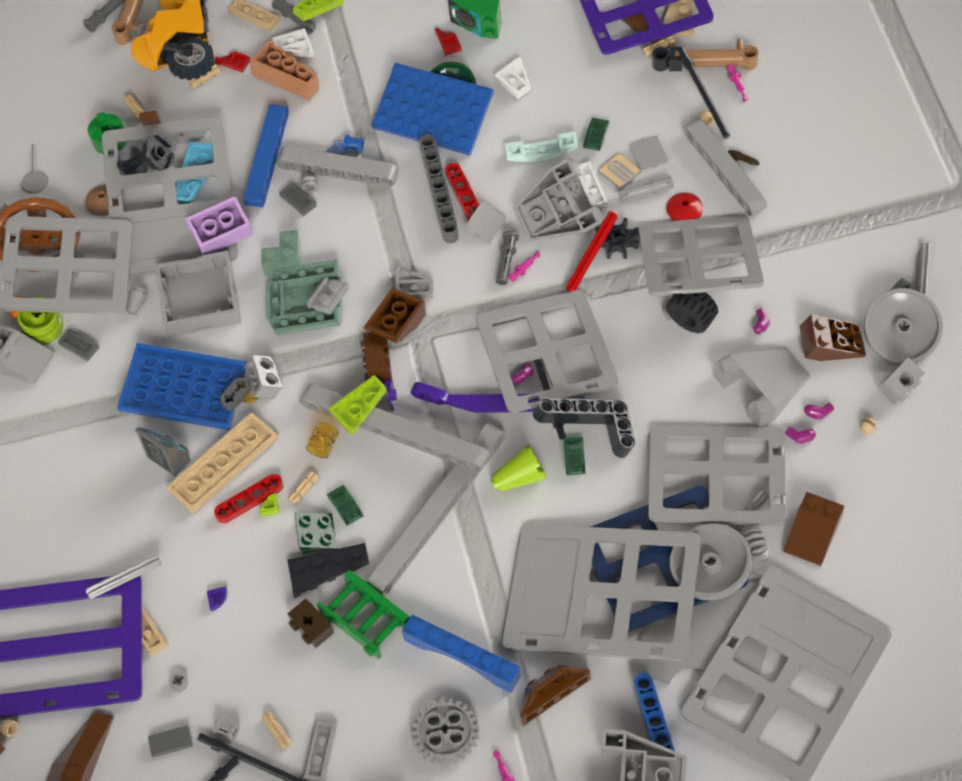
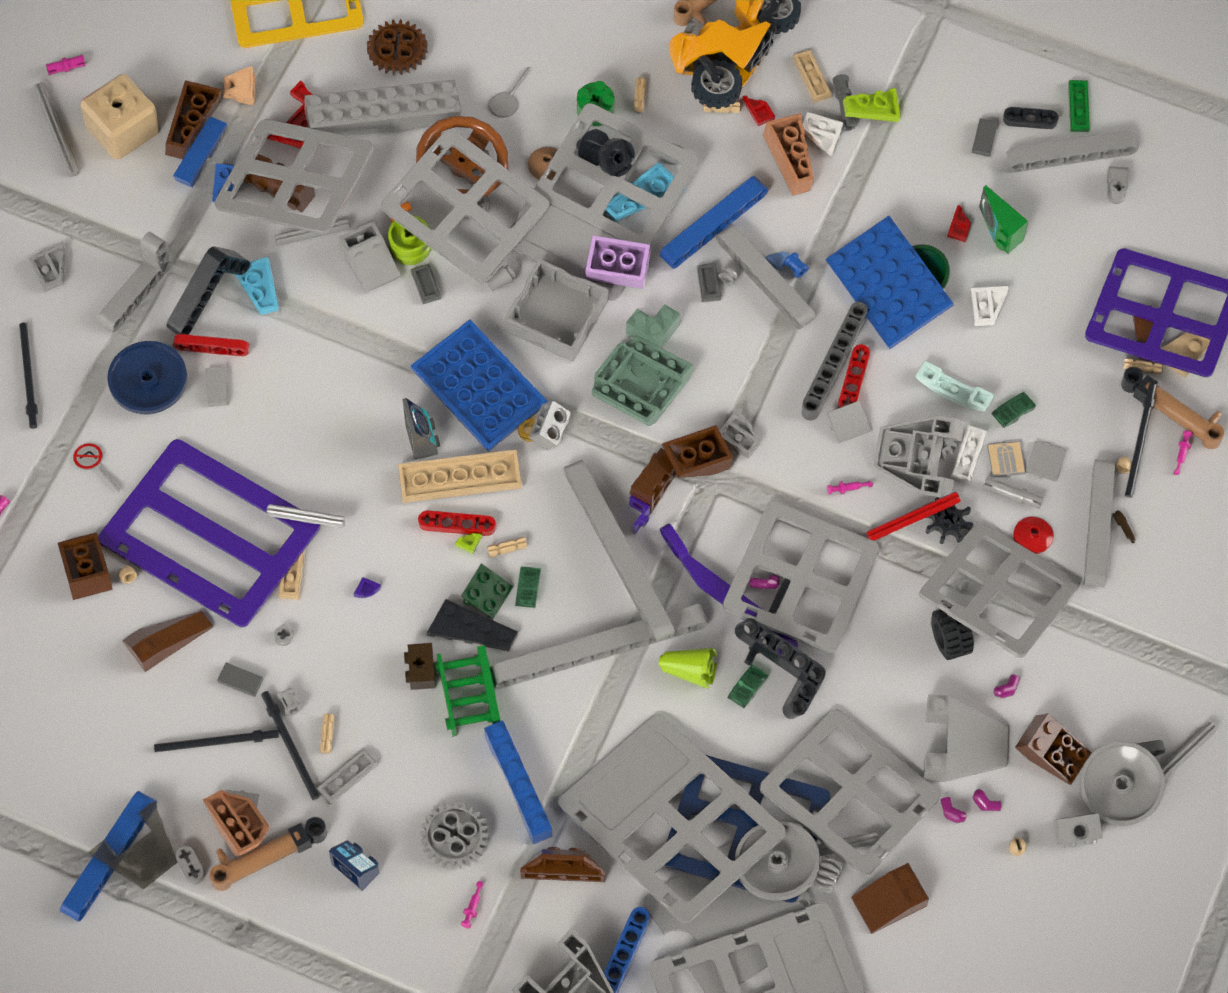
camera: 30 degrees right, 5 degrees up
(150, 118) = (636, 120): reddish brown tile -> none
(238, 395) = (515, 425): dark grey beam -> none
(322, 439) = (553, 517): clear yellow wheel -> none
(327, 295) = (658, 392): light grey plate -> none
(358, 404) = (600, 509): lime wing -> none
(507, 251) = (846, 461): dark grey pin -> none

